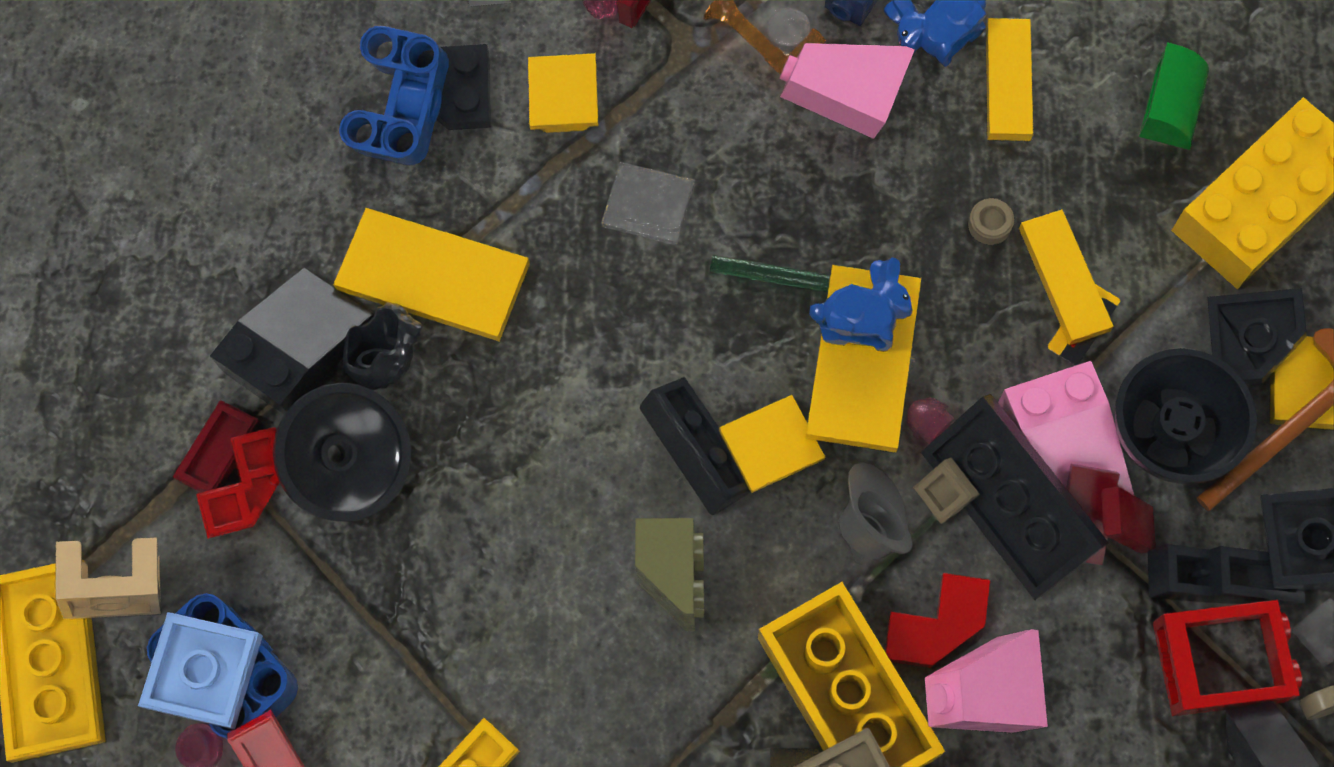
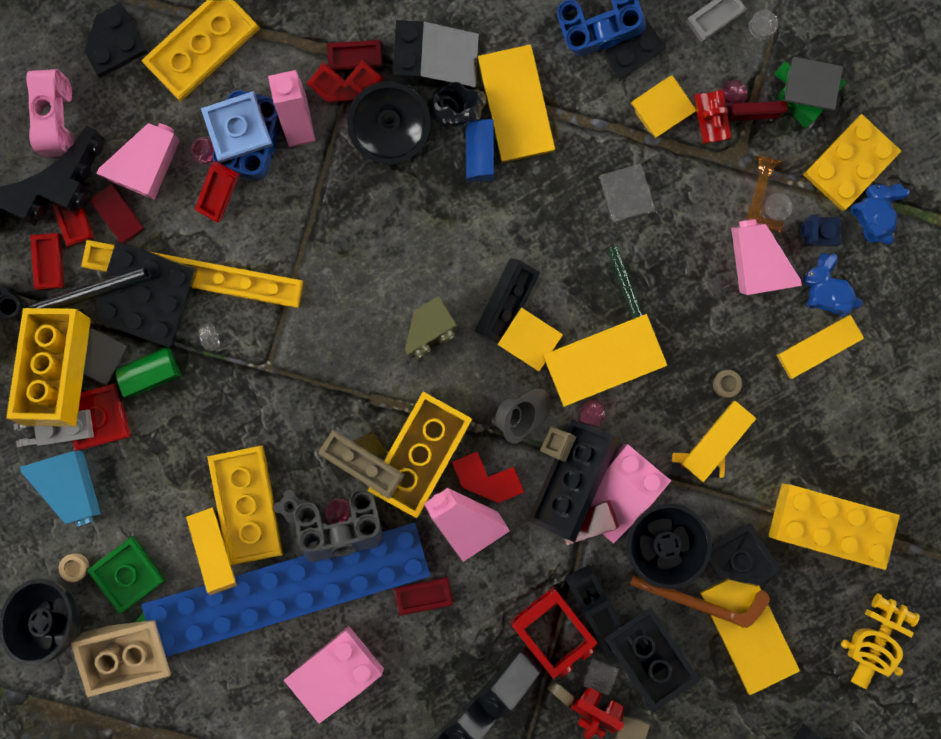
camera: 50 degrees right, 15 degrees up
(108, 595) = (236, 36): tan panel -> none
(229, 572) = (292, 108): none -> bright pink slope
(464, 355) = (479, 150): none -> blue brick
(618, 36) = (712, 117): none -> red hips
(865, 314) = (625, 347): blue animal -> none
(1128, 519) = (595, 546): dark red tile -> none
(1175, 97) = (863, 444): green brick -> none

